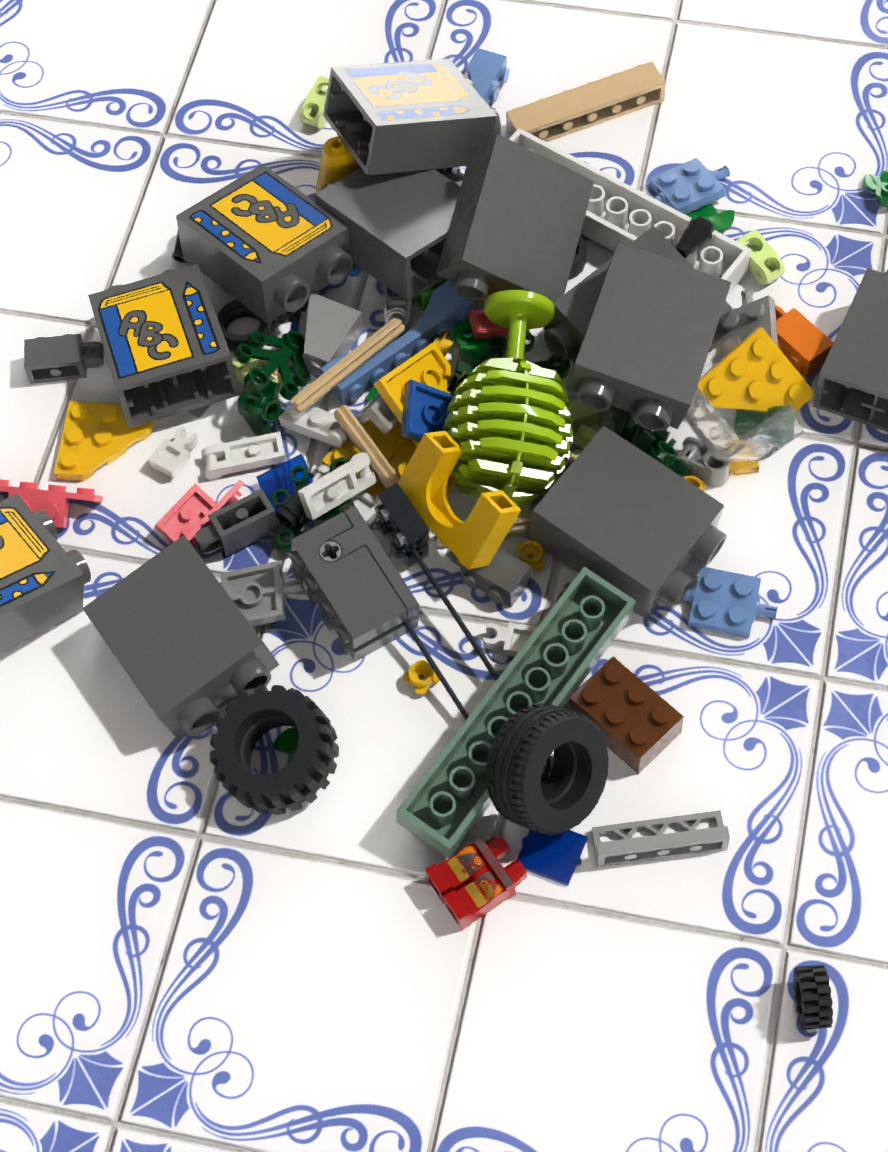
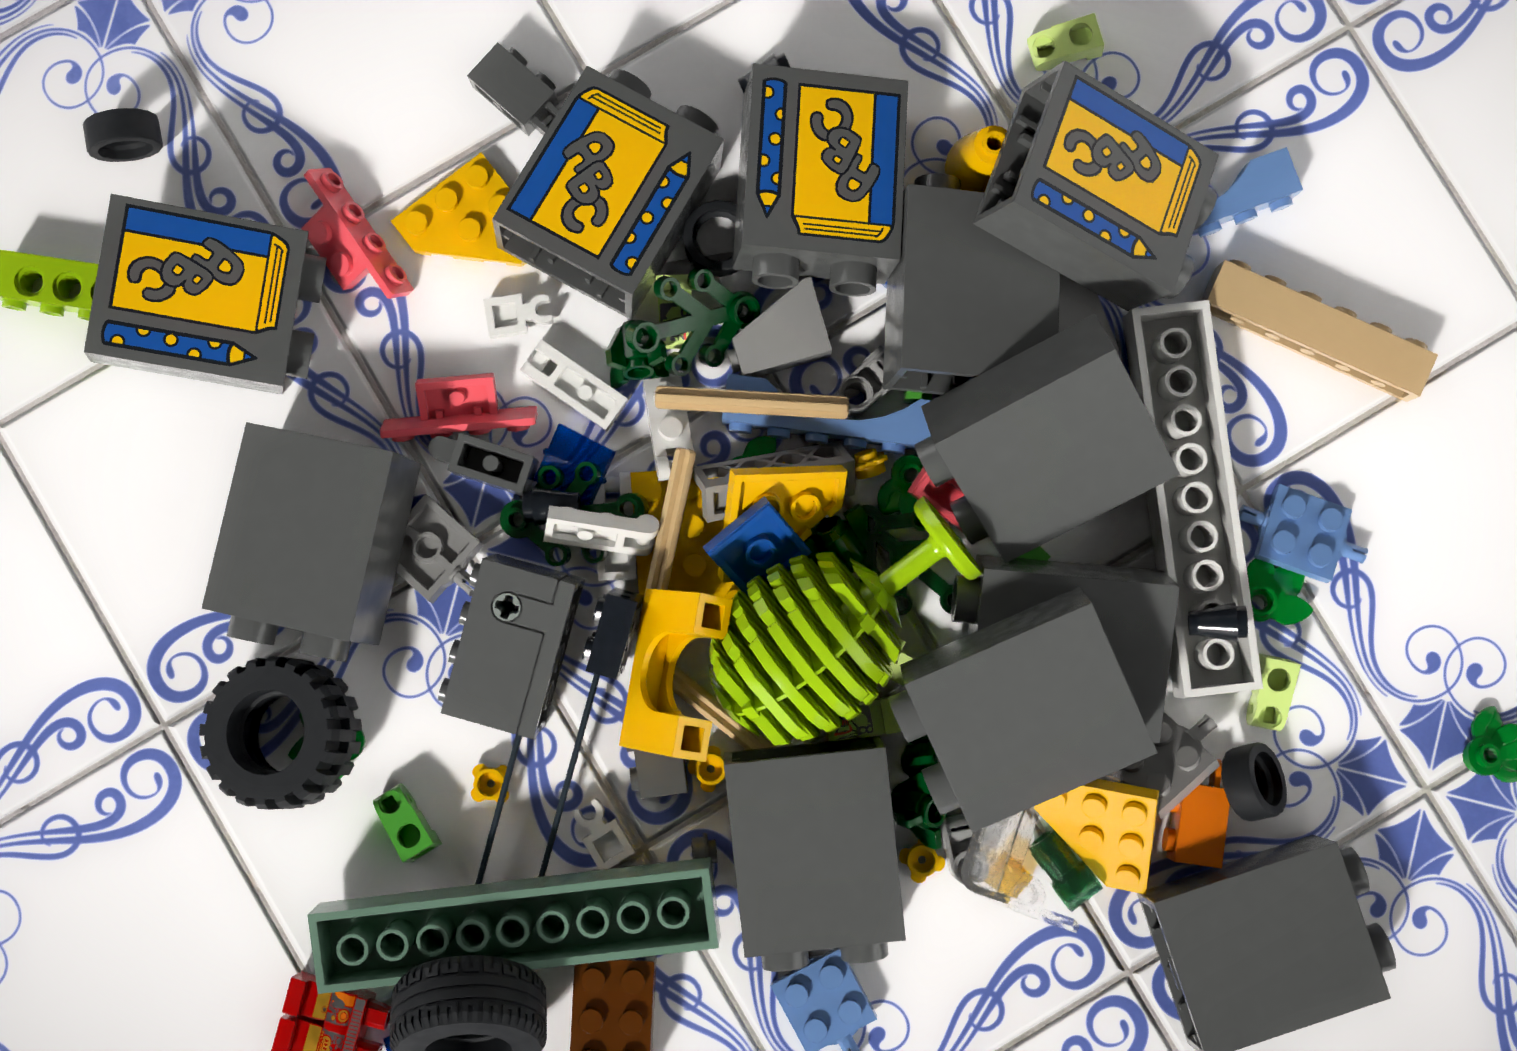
camera: 40 degrees right, 25 degrees up
(398, 738) = (405, 824): none -> bright green leg
(800, 295) = (1254, 782): none -> black tyre

